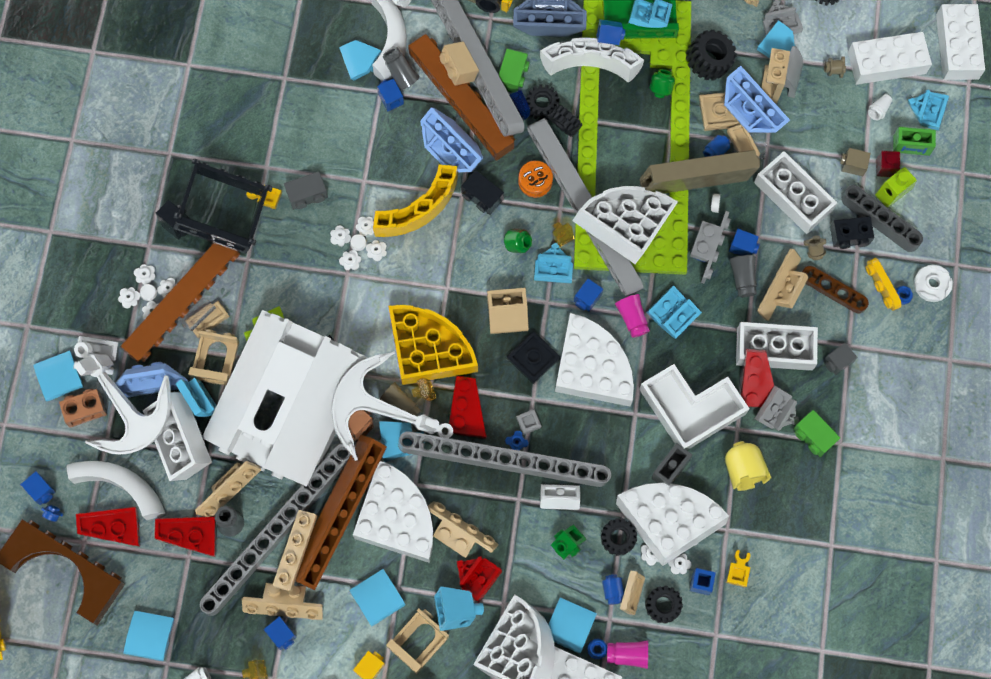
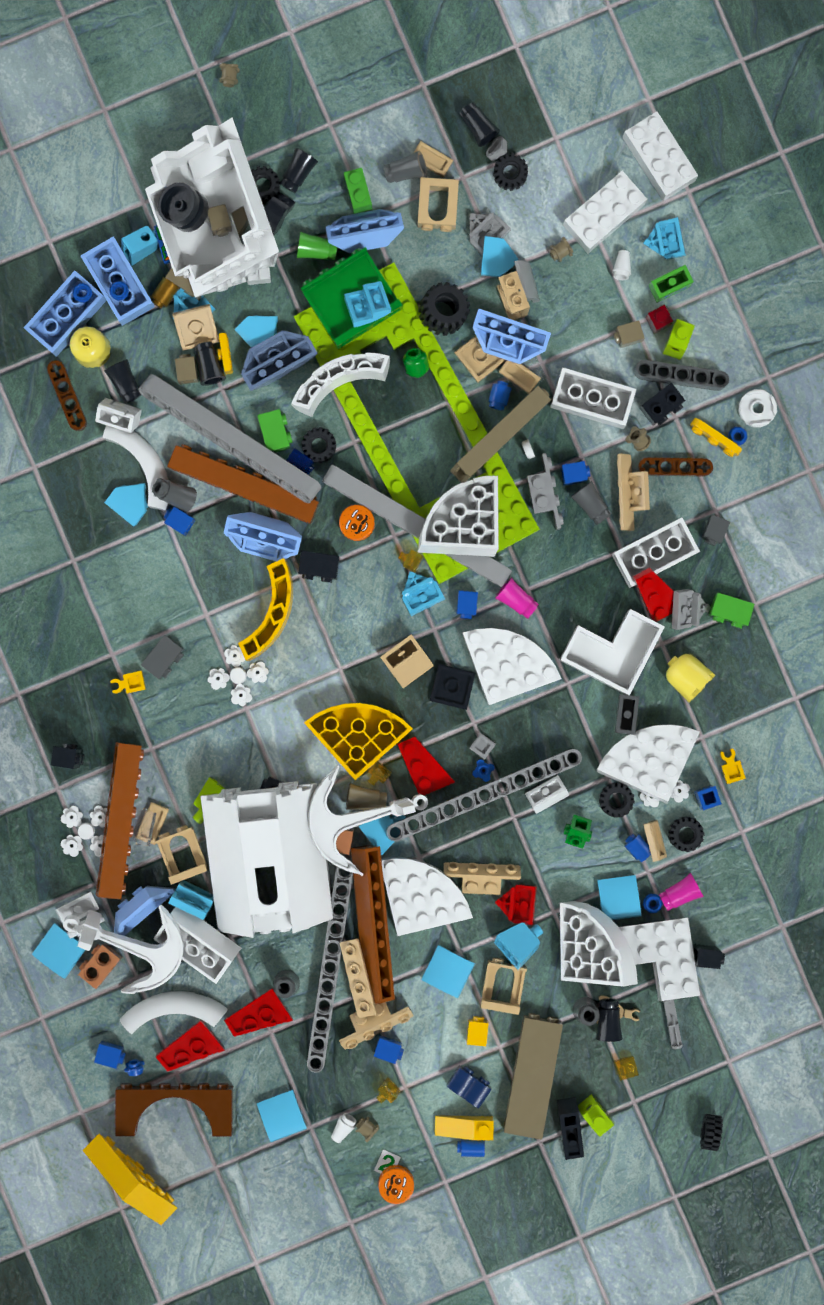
camera: 30 degrees left, 15 degrees up
(209, 232) = (111, 752): black window -> none
(228, 487) = (267, 959): tan bracket -> none
(459, 63) = (224, 458): tan brick -> none
(517, 240) = (376, 591): green head -> none
(565, 120) = (351, 453): black tyre -> none
(610, 32) = (343, 348): blue brick -> none
(673, 312) = (548, 572): medium azure slope -> none

